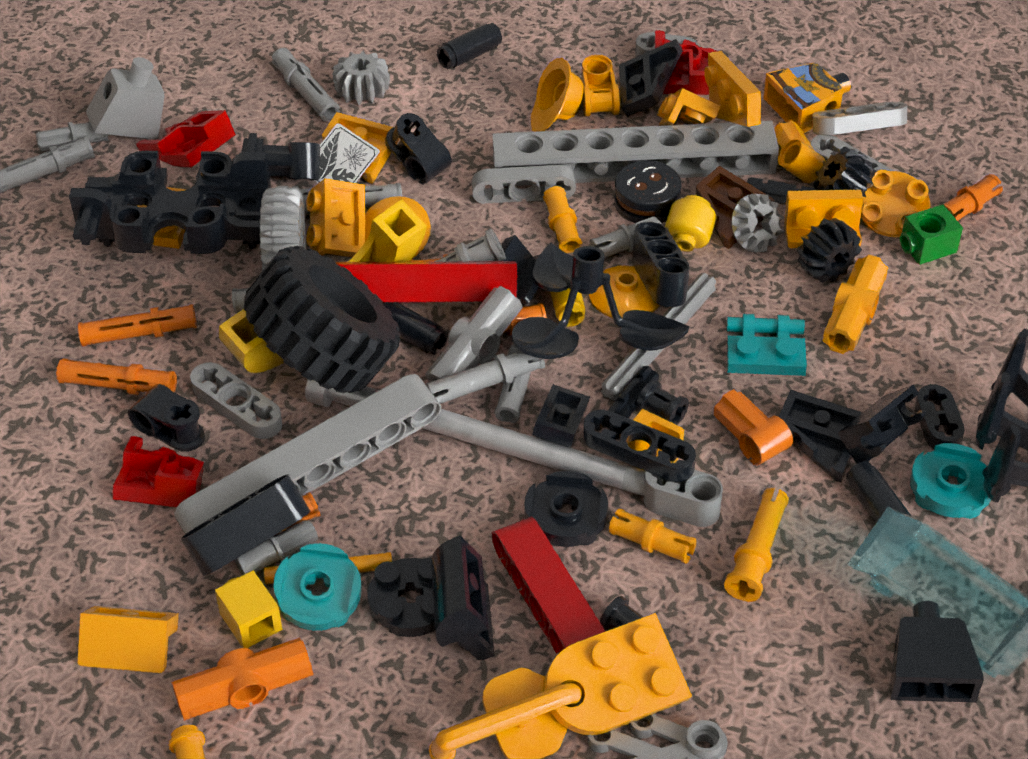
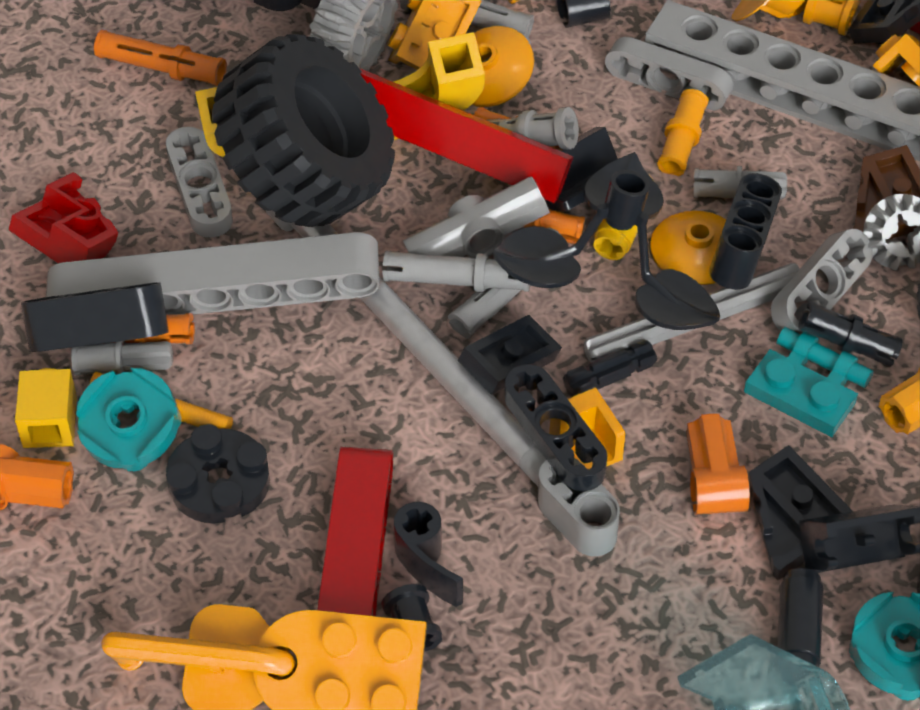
camera: 30 degrees right, 5 degrees up
(131, 378) = (114, 112): orange pin -> none
(168, 418) = (117, 171): black piece -> none
(417, 329) = (427, 179): black piece -> none
(461, 598) = (250, 506): black brick -> none
(586, 501) = (448, 485): black plate -> none
(592, 576) = (419, 547): none -> black panel
(646, 190) = (803, 141): black head -> none
(652, 535) = (513, 536): light orange pin -> none
(662, 403) = (634, 393): black bush -> none
(691, 222) = (823, 198): yellow head -> none
(729, 277) = (839, 275): none -> light grey beam
(754, 556) = (604, 615): light orange pin -> none
(774, 301) = (850, 333): none -> black pin

